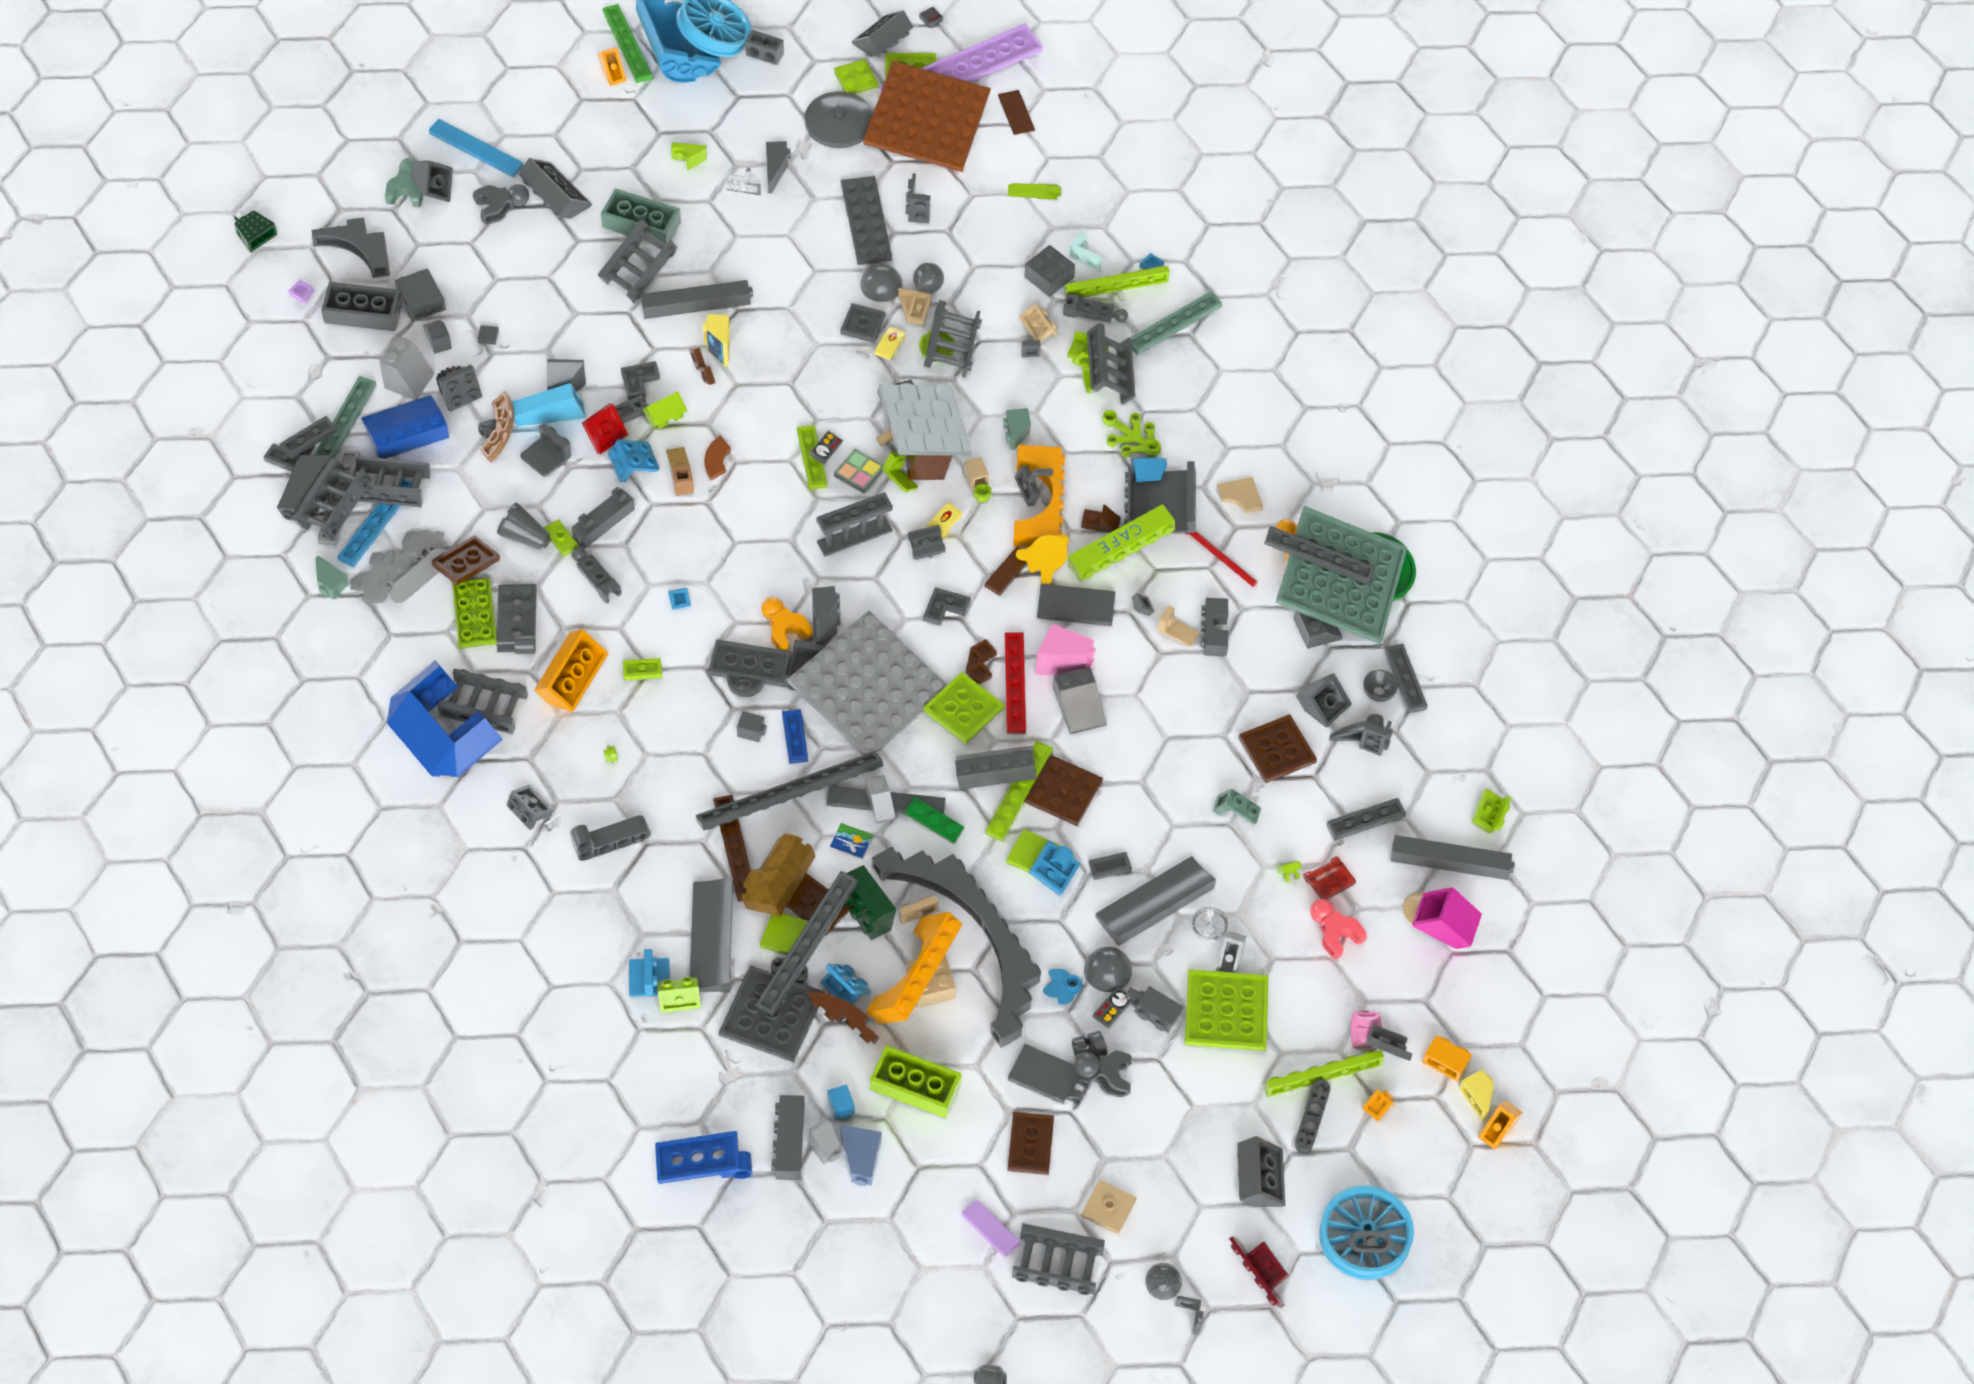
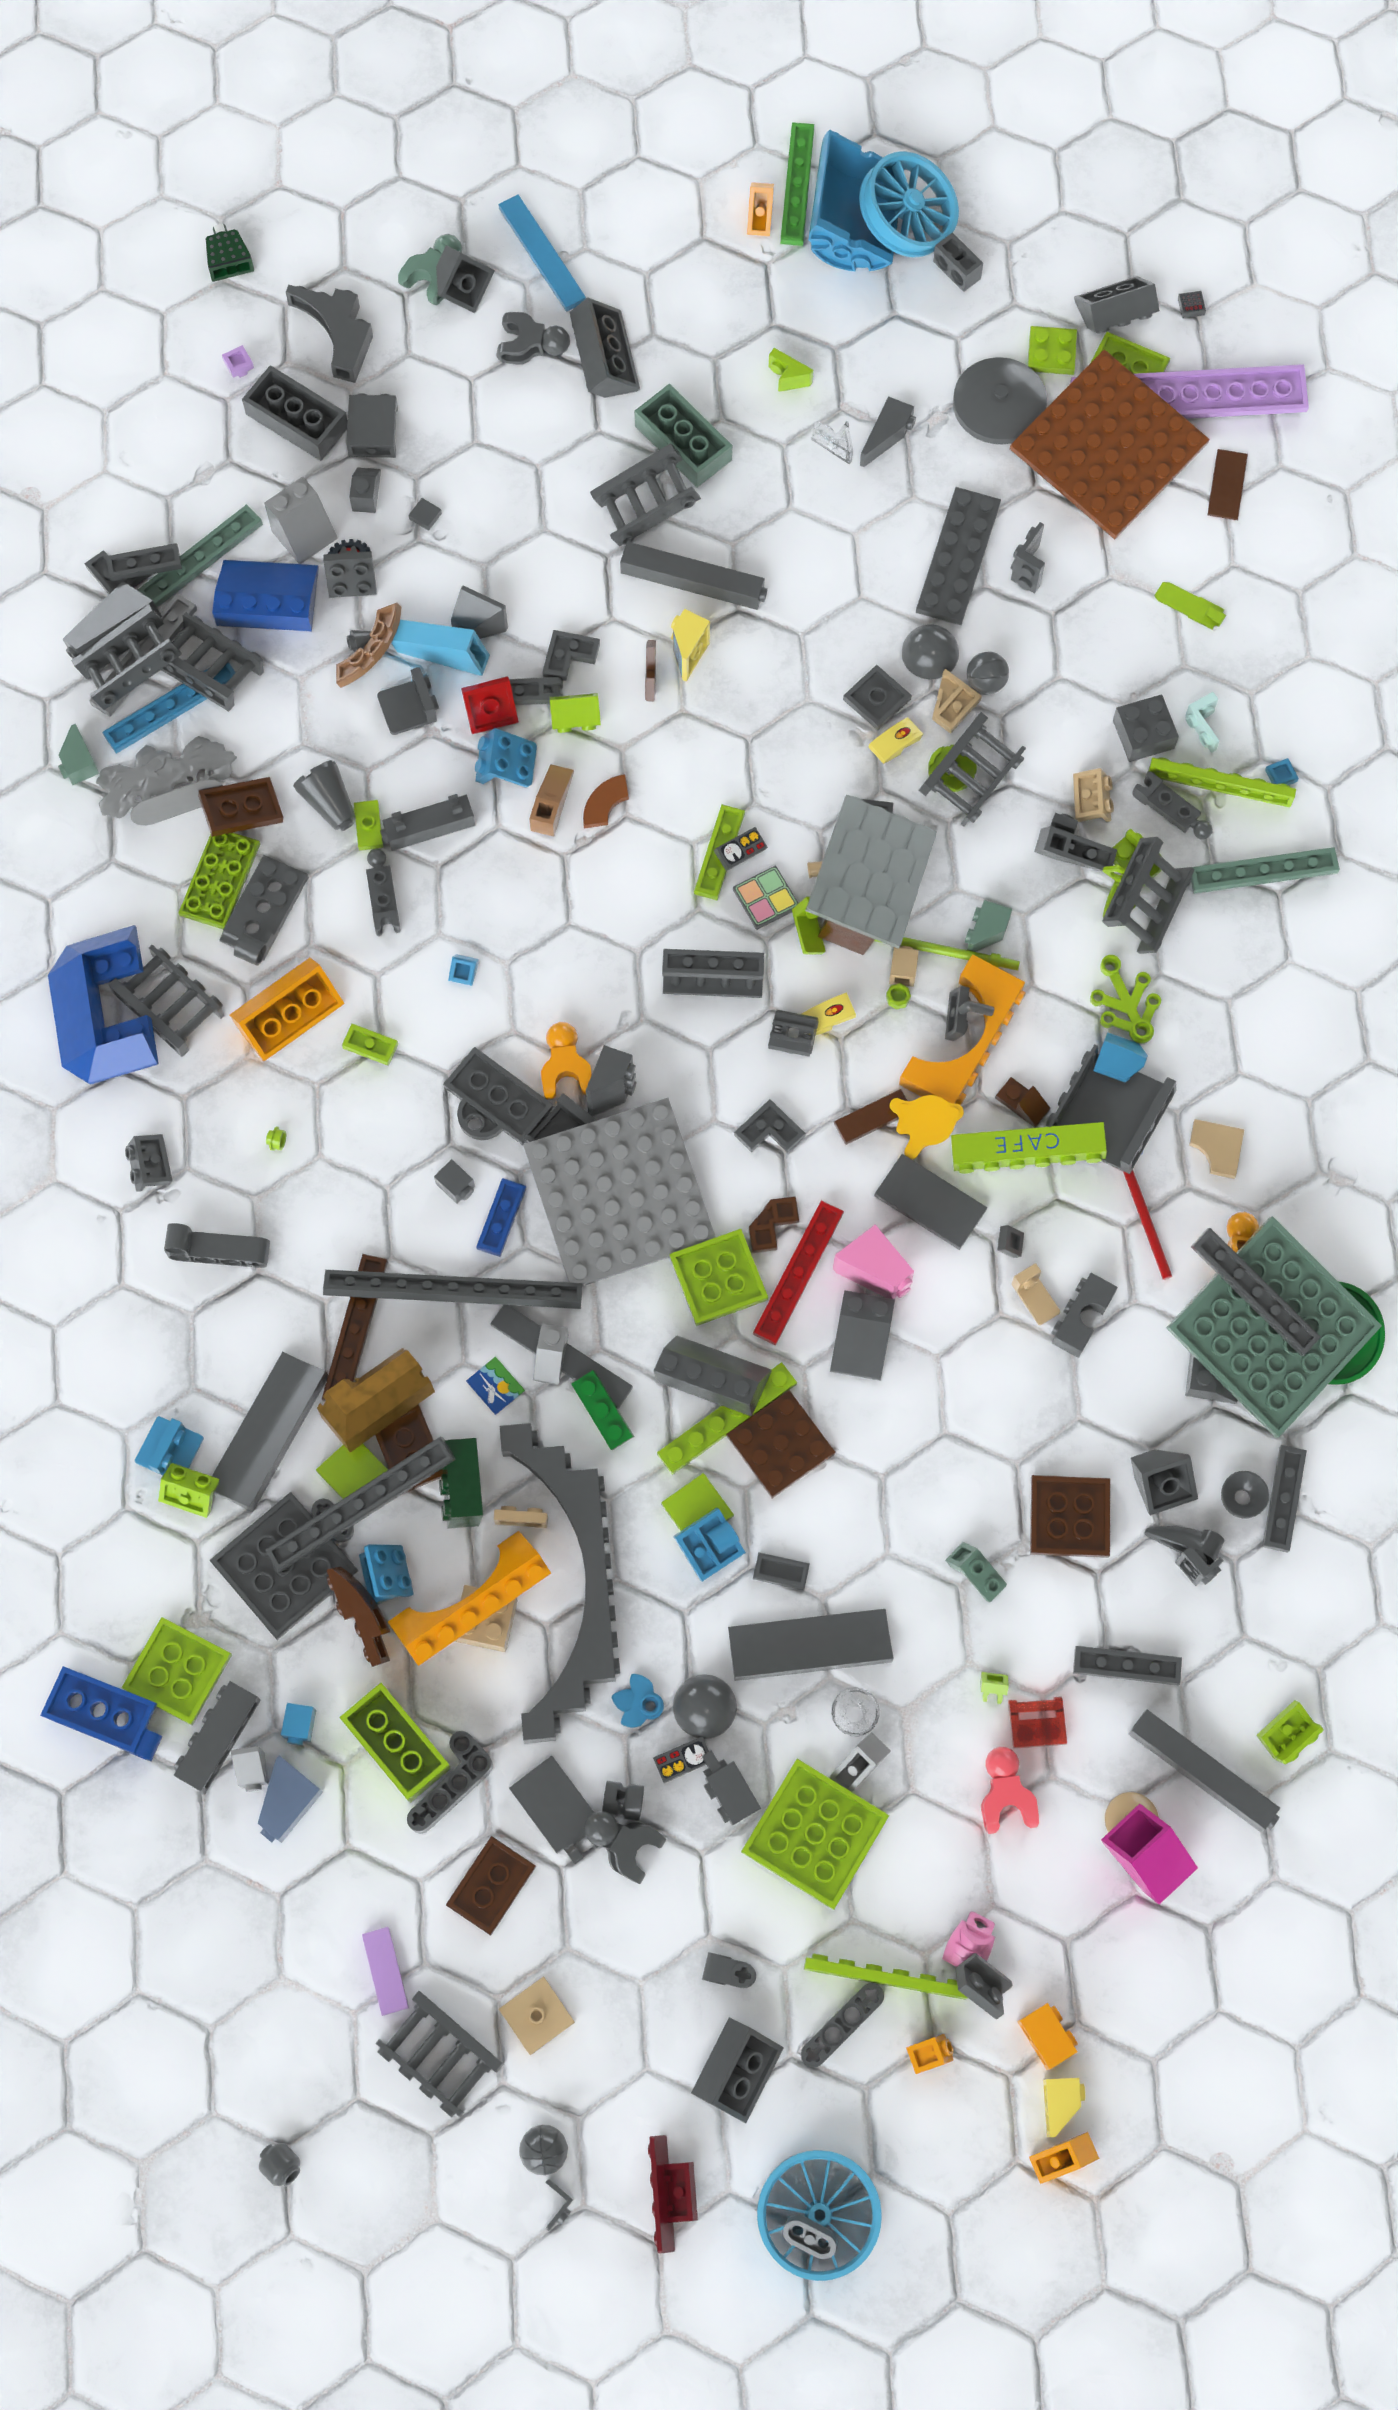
camera: 30 degrees right, 15 degrees up
(737, 1107) = (177, 1671): none -> lime plate
(968, 1096) = (446, 1787): none -> dark grey beam
(997, 453) = (994, 959): none -> lime bar
(1045, 358) = (1074, 849): none -> dark grey slope
(1219, 1117) = (723, 1971): none -> dark grey piece

